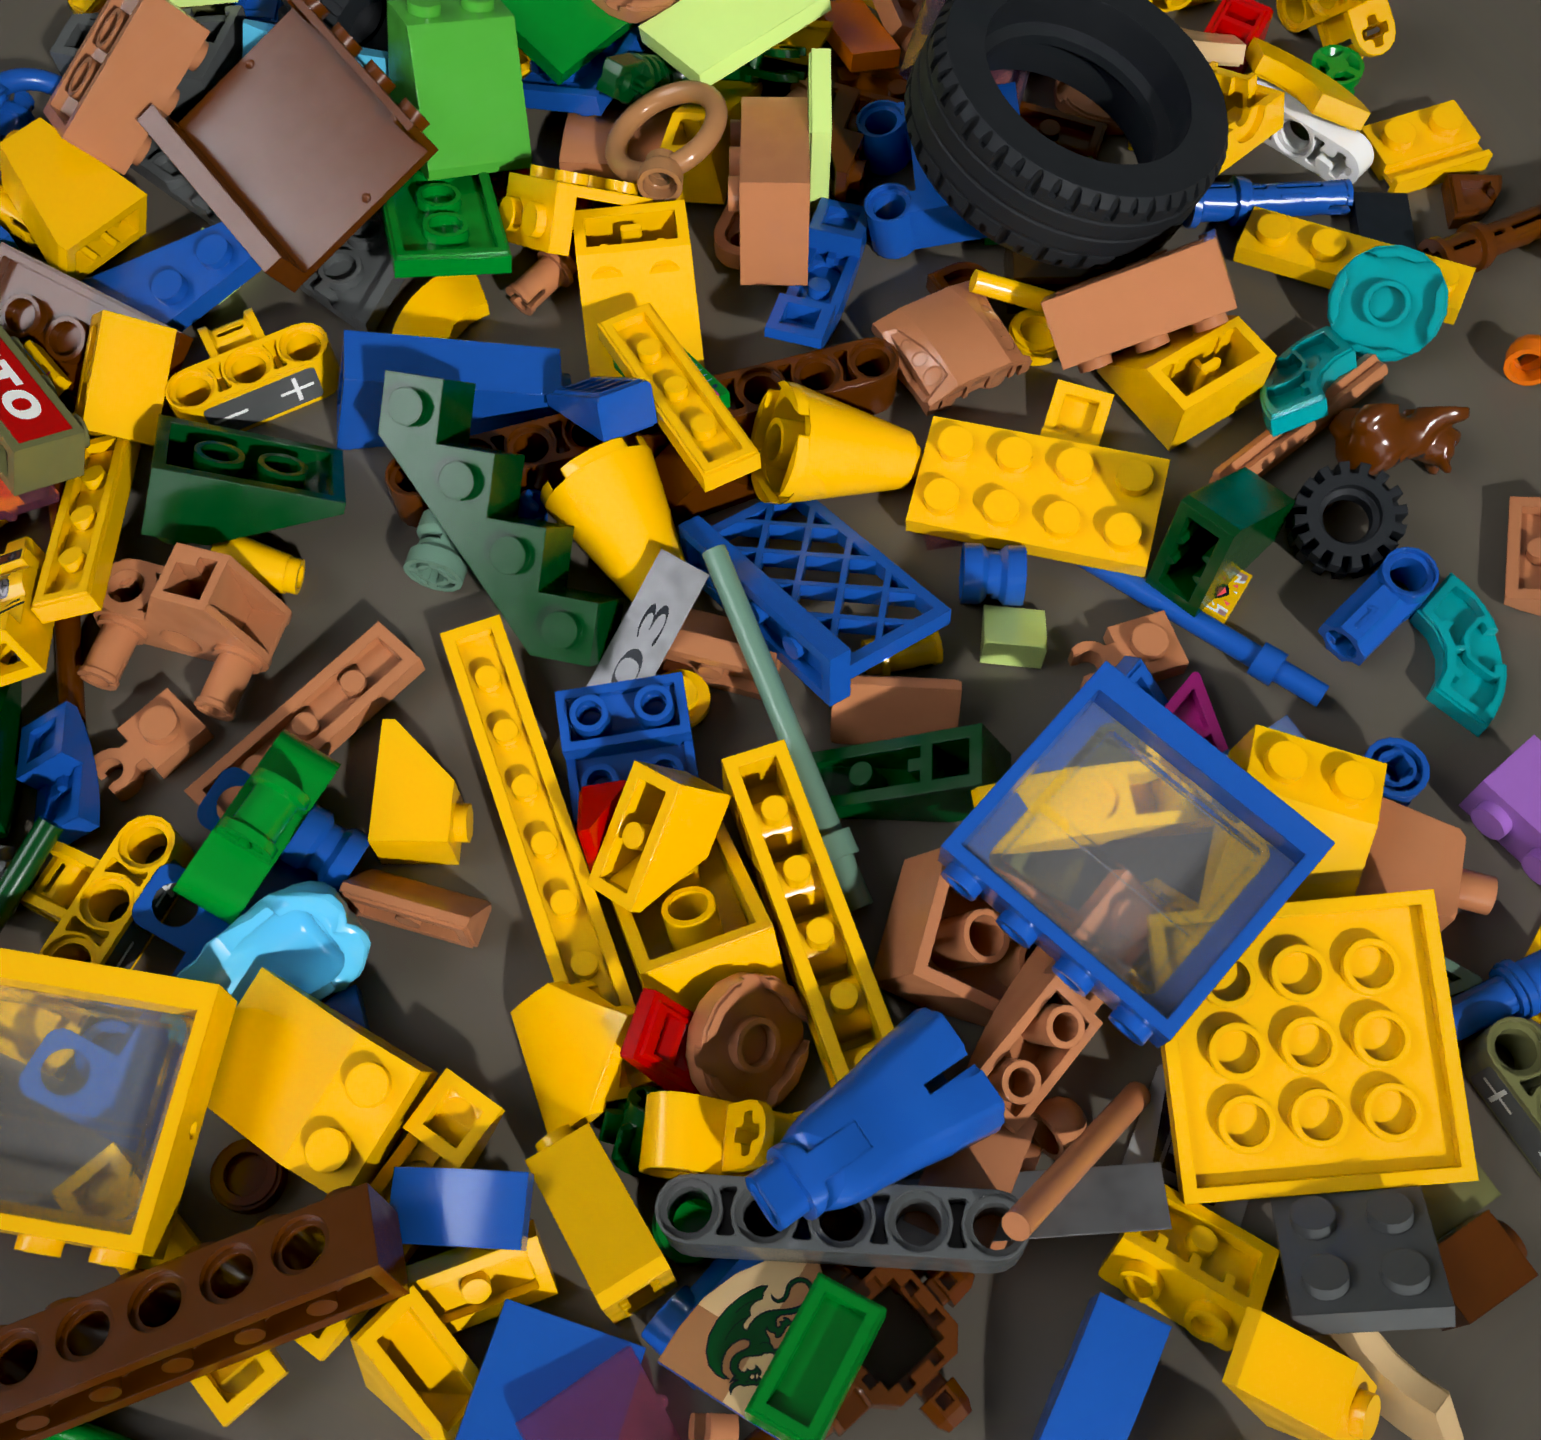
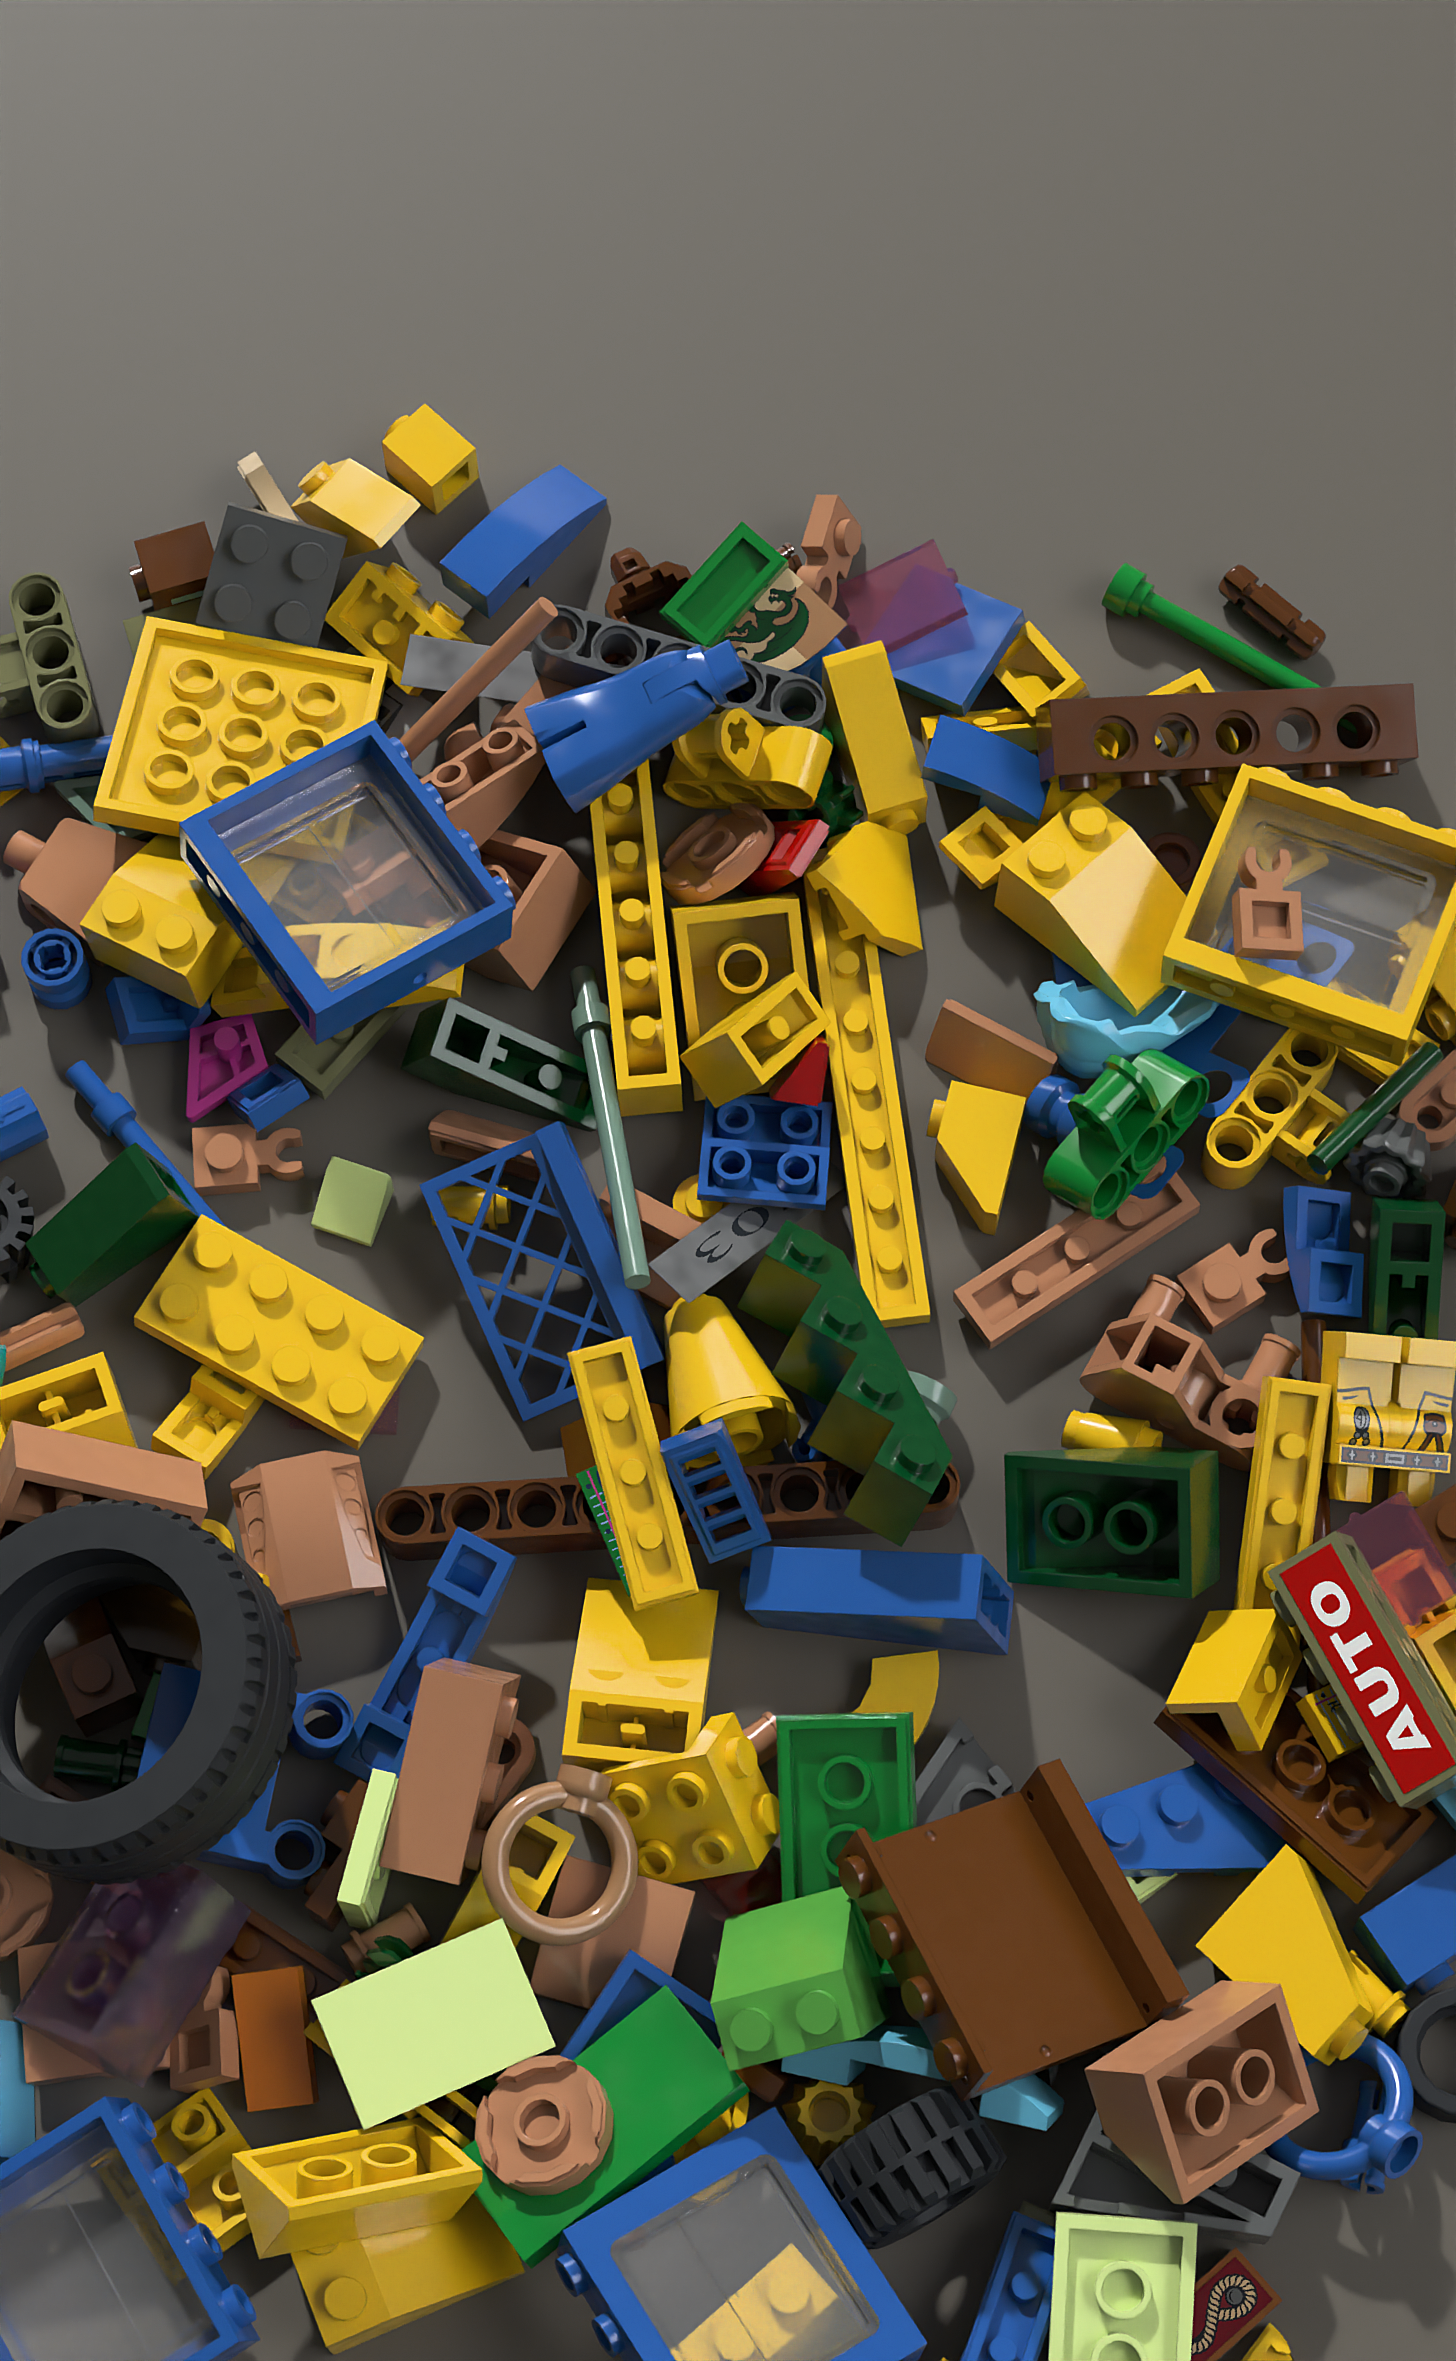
camera: 165 degrees left, 5 degrees up
(93, 1050) = (1264, 915): none -> nougat plate
(254, 375) = (1103, 1717): yellow beam -> none
(634, 75) = (577, 1979): dark green hinge -> none
(826, 448) = (487, 1414): yellow cone -> none
(994, 573) = (354, 1259): blue wheel -> none

